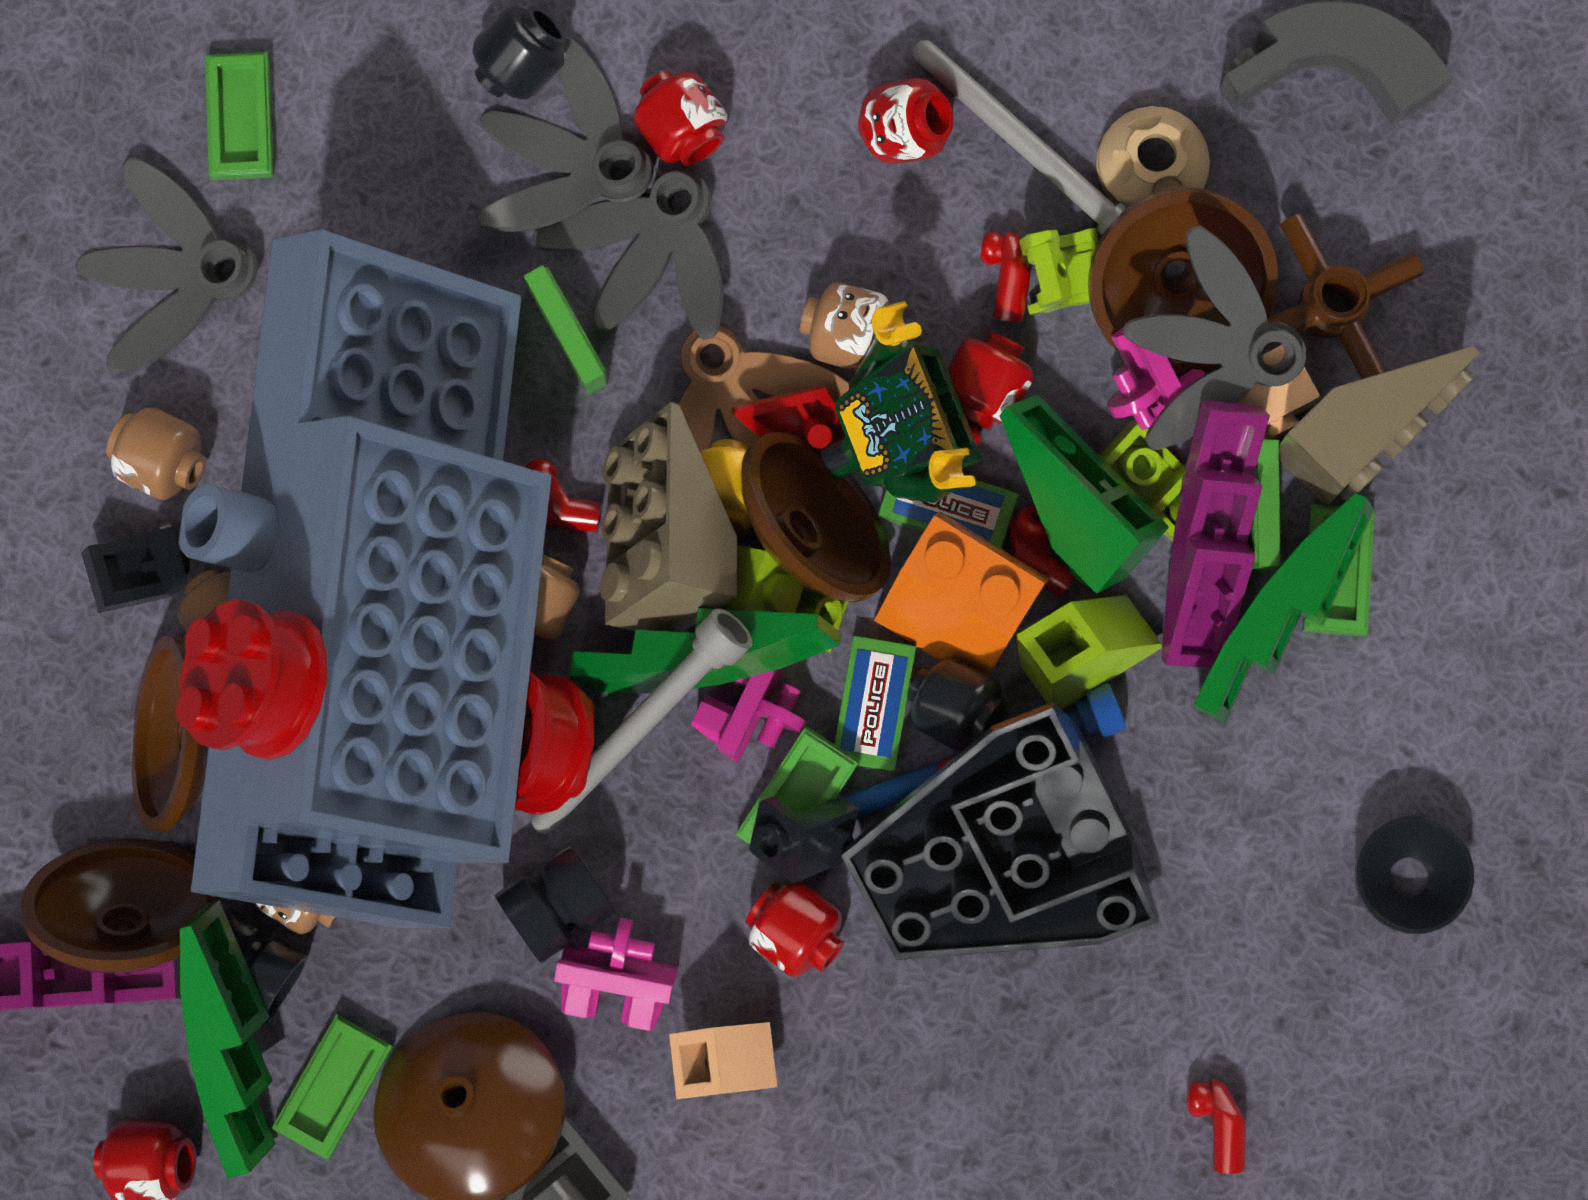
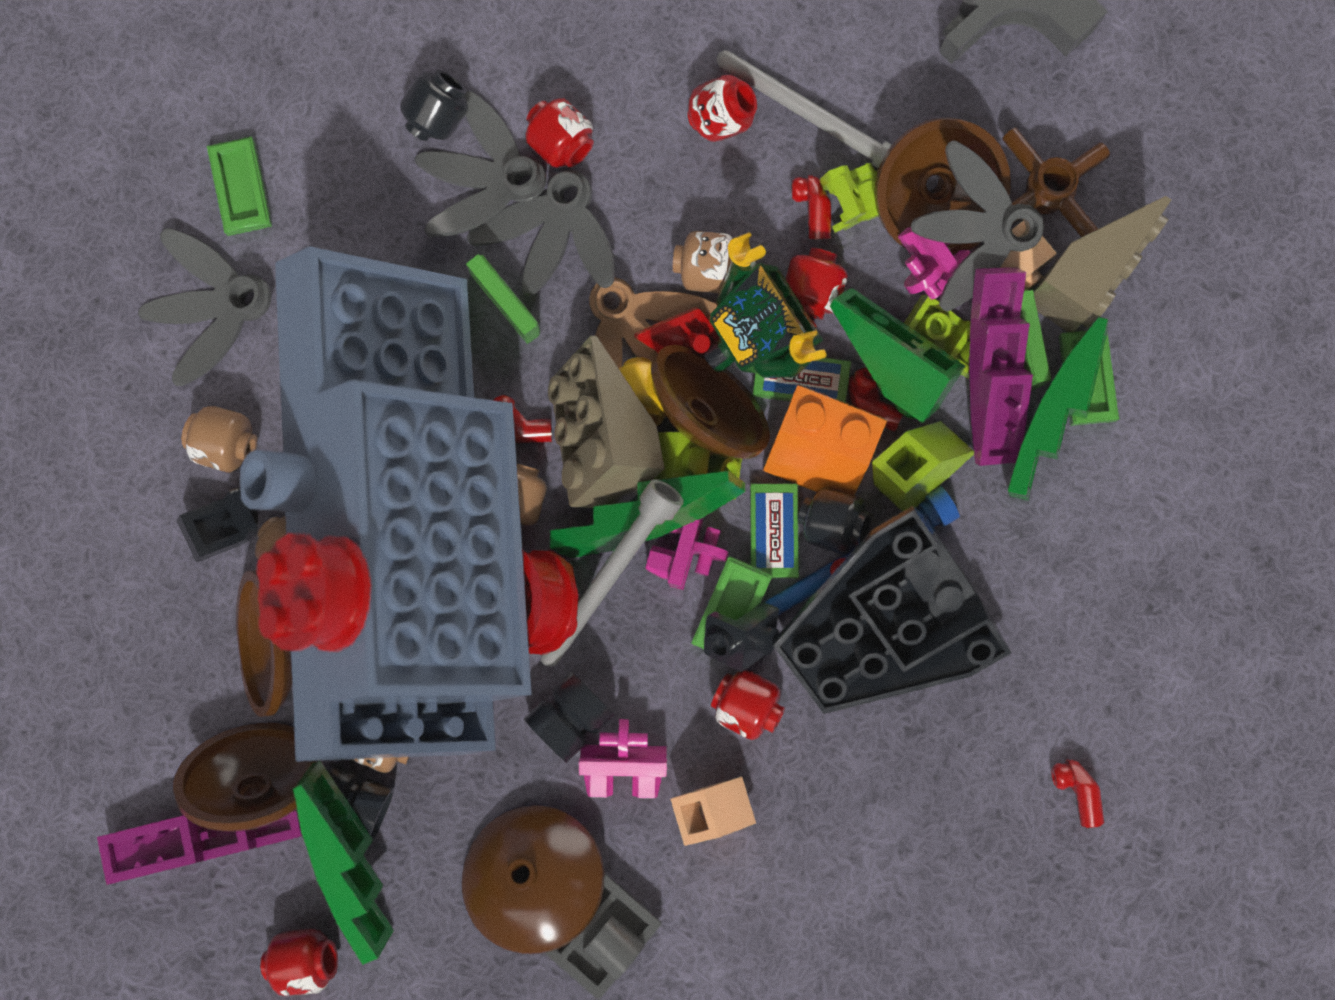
camera: 15 degrees left, 0 degrees up
(332, 1087) = (429, 881): bright green tile -> none
(1118, 162) = (881, 117): tan piece -> none
(1446, 864) = (1210, 582): black piece -> none

